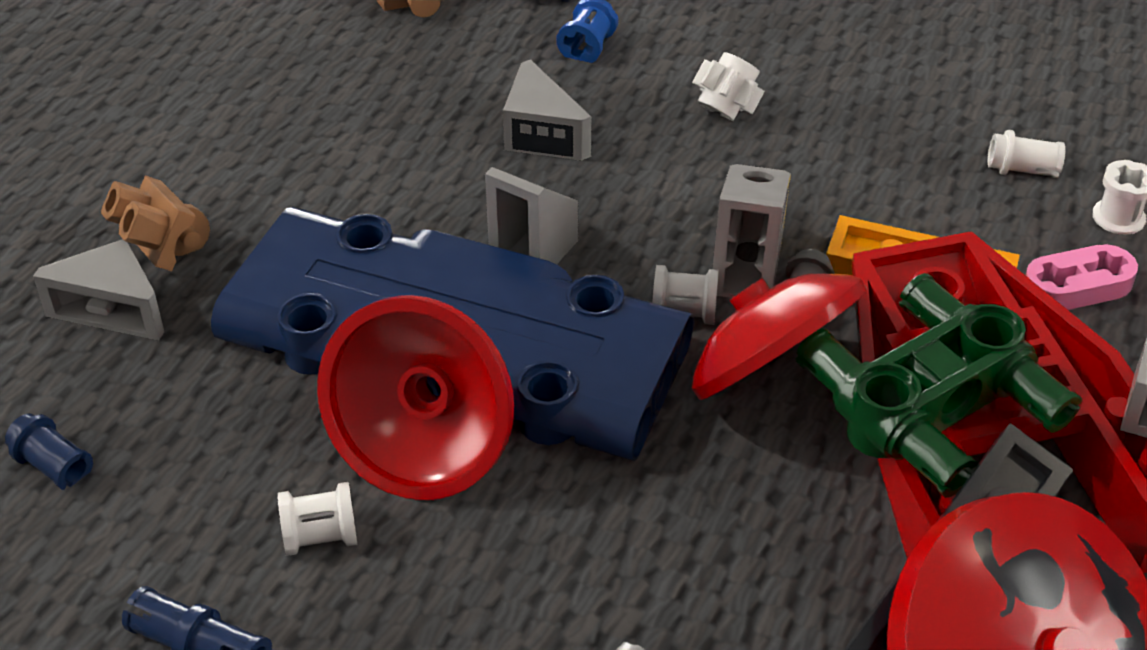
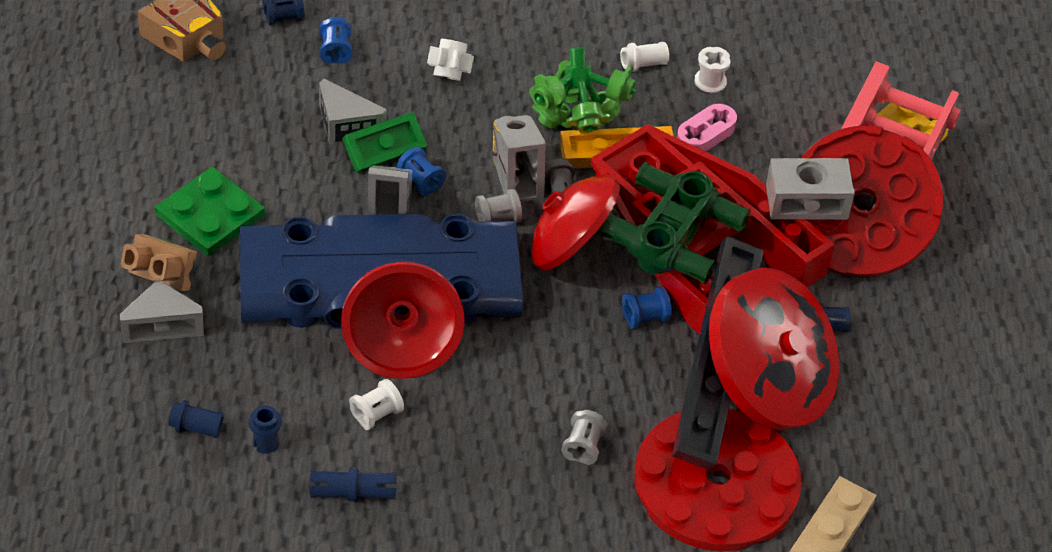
camera: 30 degrees left, 5 degrees up
(118, 489) = (265, 424): none -> dark blue pin
(282, 175) = (209, 211): none -> green plate
(576, 160) = (383, 141): none -> green plate
(608, 197) = (422, 171): none -> blue bush
(845, 511) = (646, 307): none -> blue bush
(888, 157) = (576, 78): none -> bright green plant

